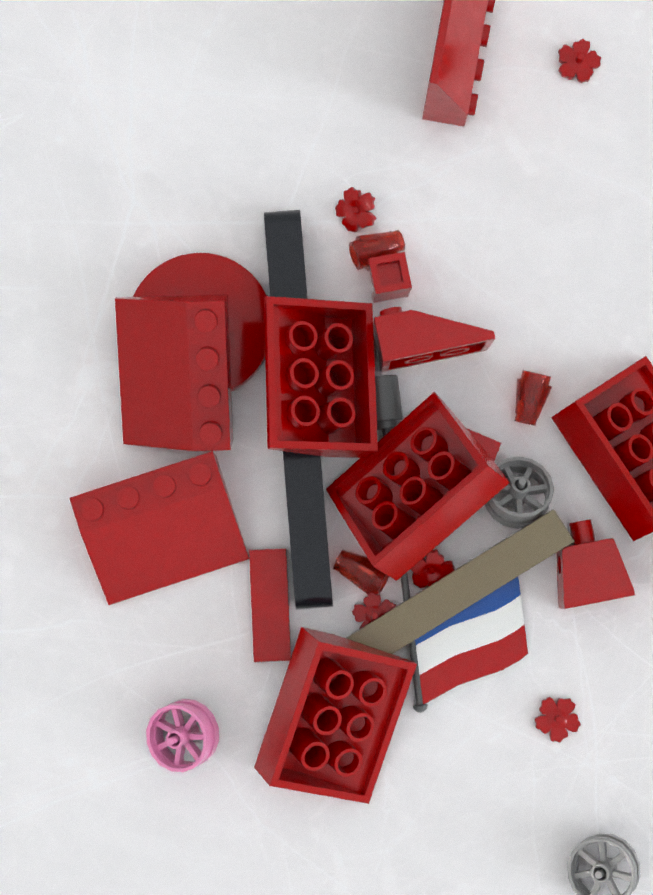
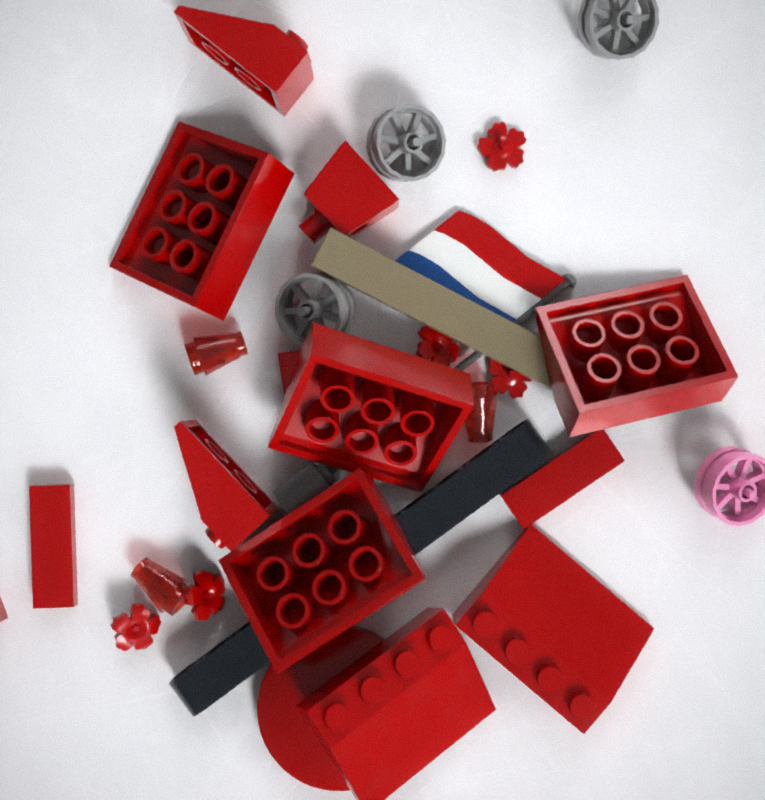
camera: 120 degrees left, 5 degrees up
(349, 276) = (205, 595): none -> red plant
(389, 277) = (182, 557): red panel -> none
(456, 185) = (53, 546): none -> red tile
(605, 642) = (406, 143): none -> light grey wheel

